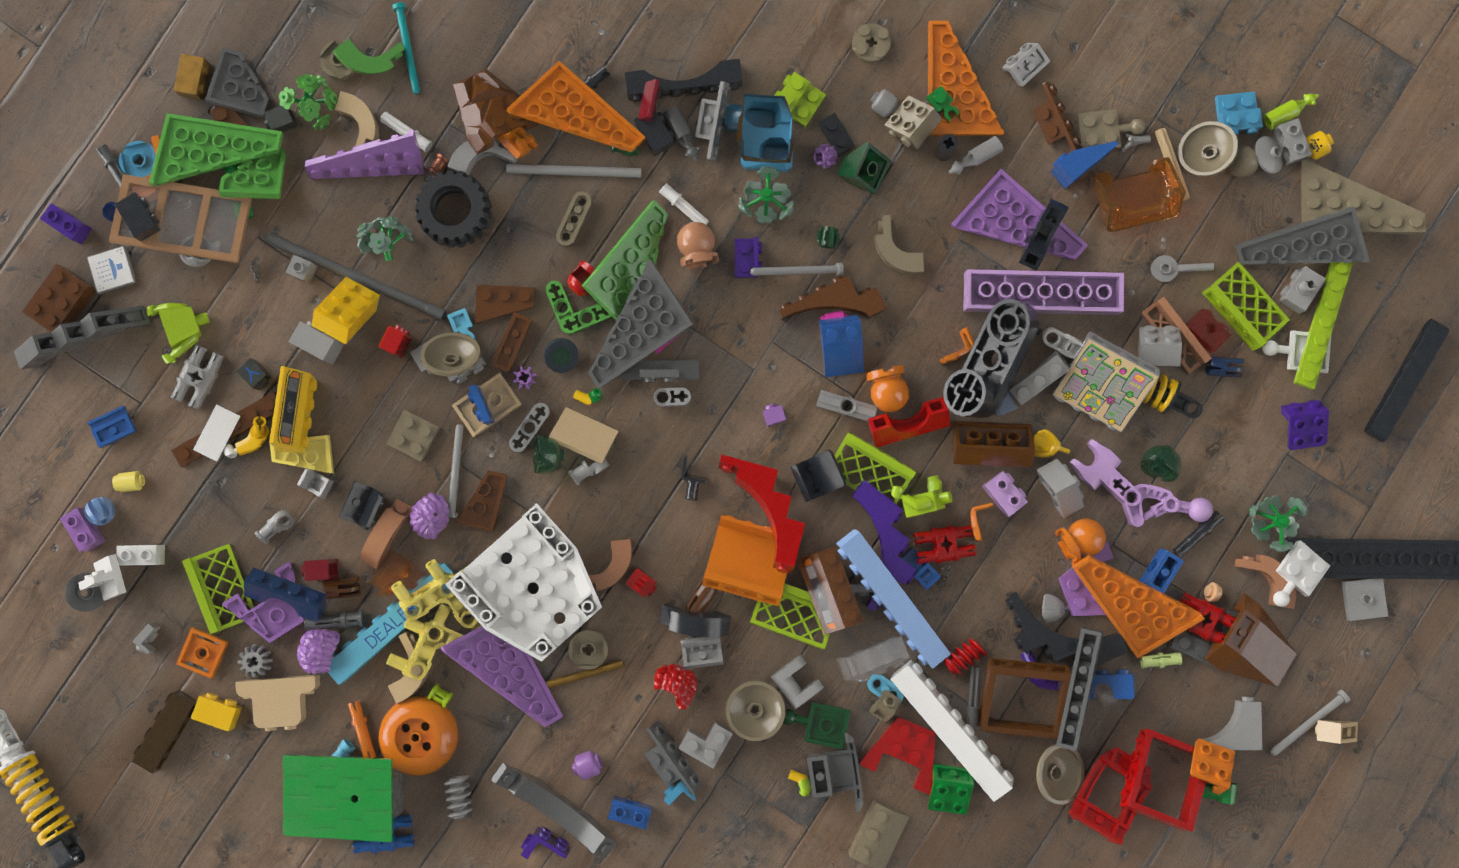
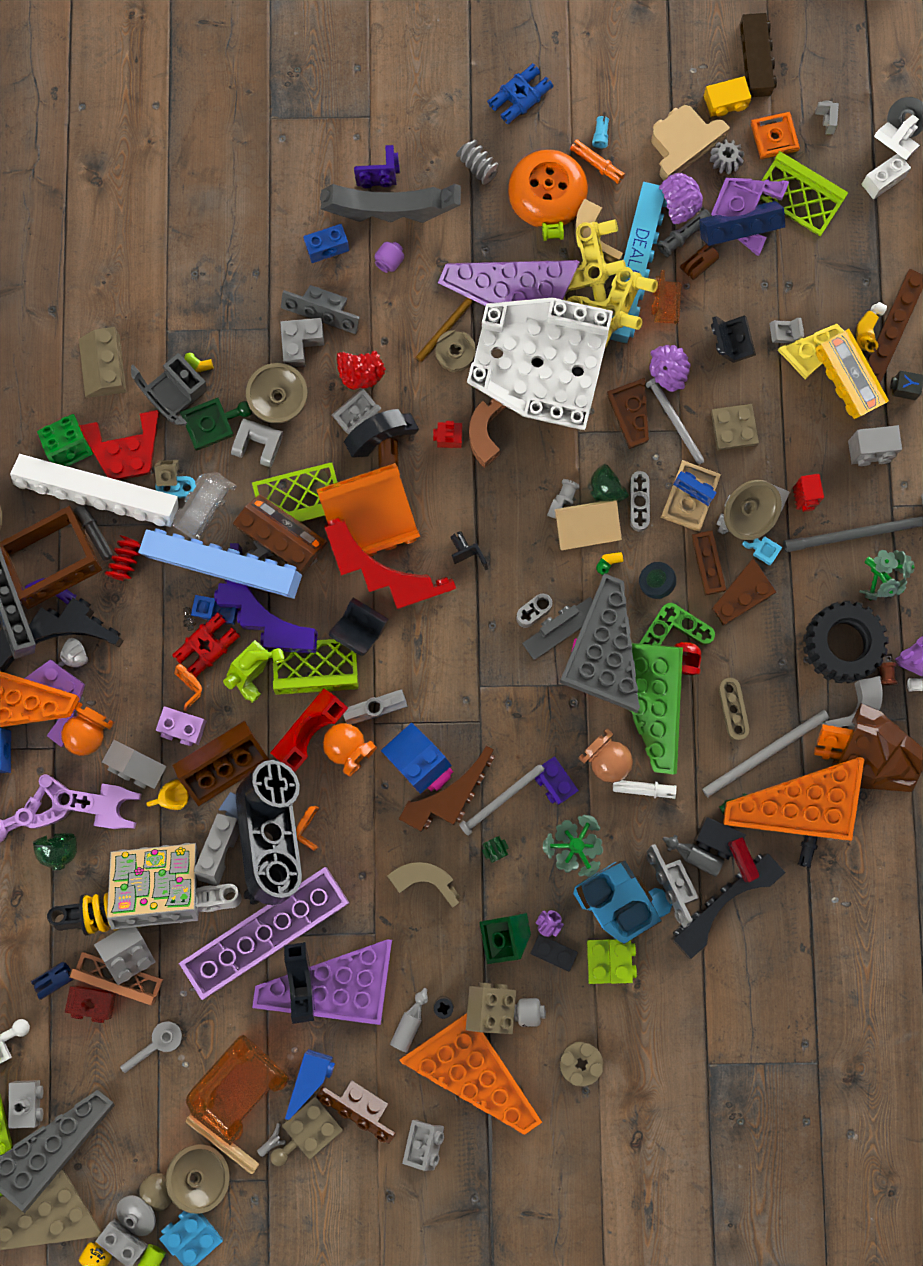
camera: 145 degrees right, 5 degrees down
(216, 432) = (901, 315): white sticker -> none
(273, 527) = (794, 271): light grey connector -> none
(320, 569) = (728, 262): dark red brick -> none
(341, 797) = (573, 96): green piece -> none
(345, 310) = (871, 487): yellow brick -> none
(383, 533) = (698, 329): nougat arch -> none
(530, 380) = (679, 543): medium lavender gear -> none
(673, 792) = (300, 284): dark azure plate -> none
(773, 414) = (434, 656): medium lavender plate -> none
(941, 102) = (478, 1049): green plate -> none
(1238, 319) = (67, 1034): lime fence -> none

